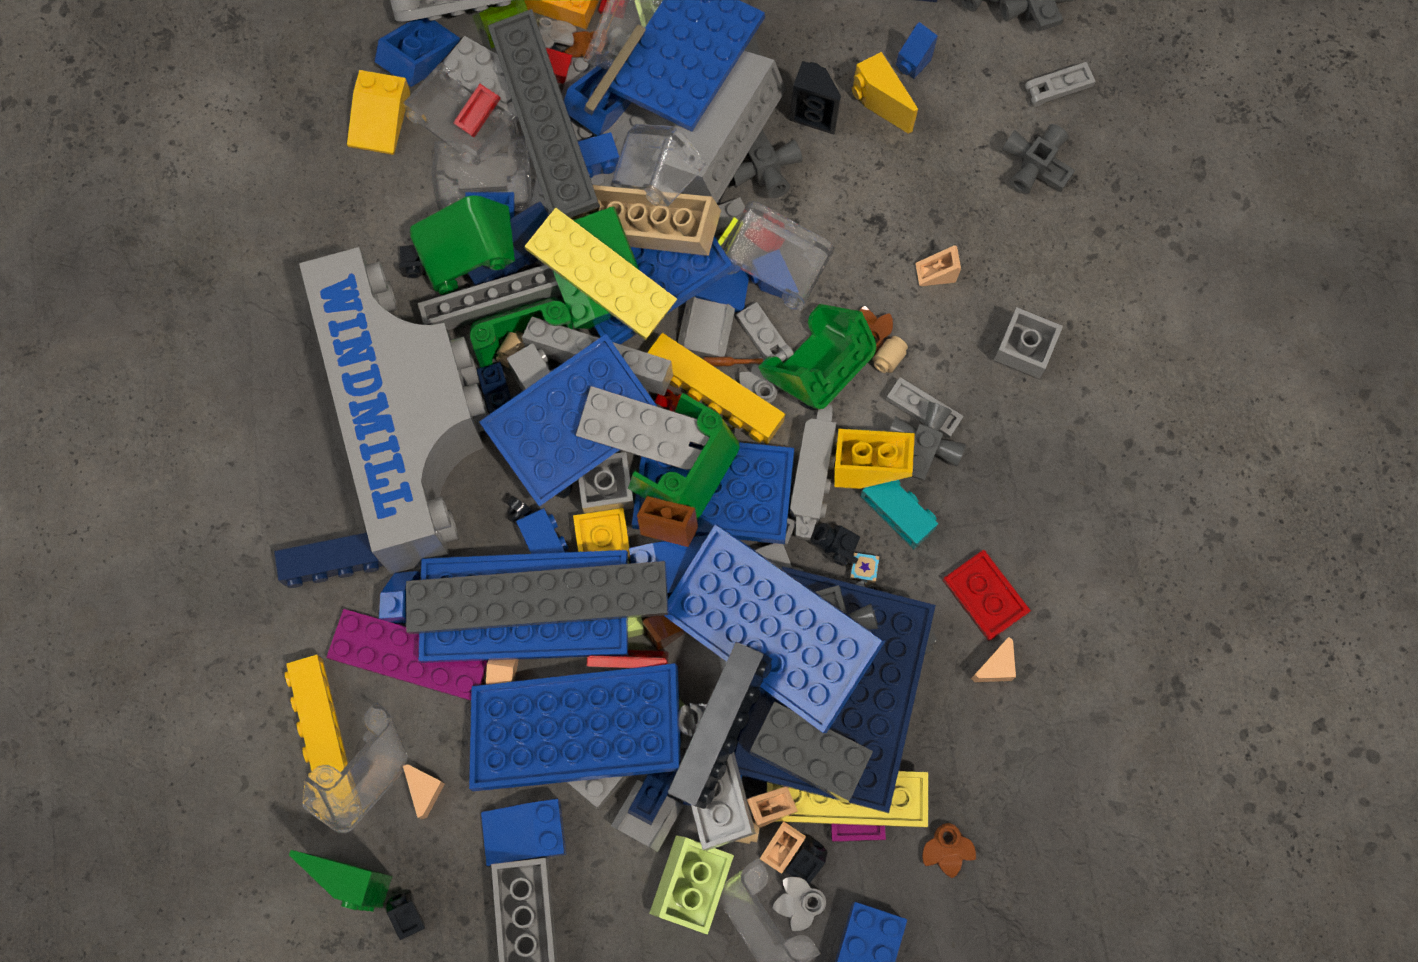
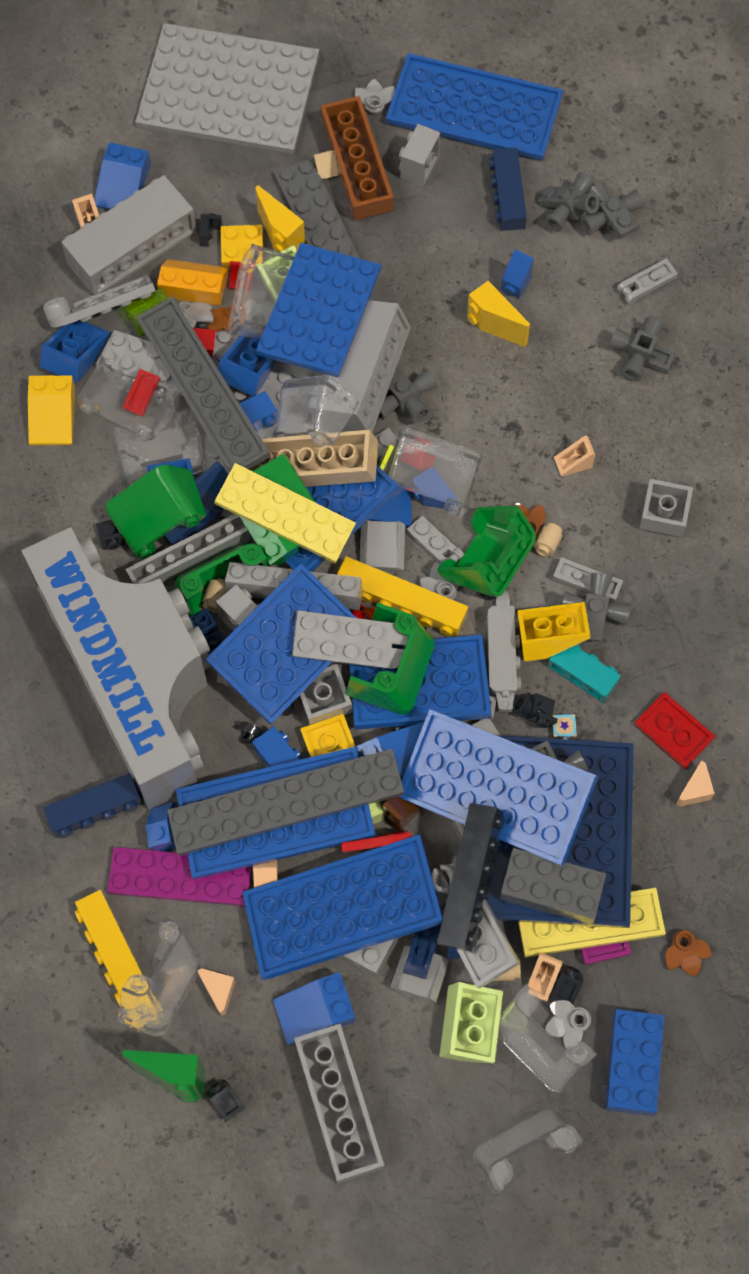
camera: 10 degrees left, 5 degrees down
(614, 69) = (260, 335): dark tan tile -> none
(667, 521) = (387, 715): dark orange brick -> none
(729, 361) = (407, 571): dark orange piece -> none
(772, 806) = (527, 941): light nougat slope -> none
(815, 98) = (438, 331): black slope -> none

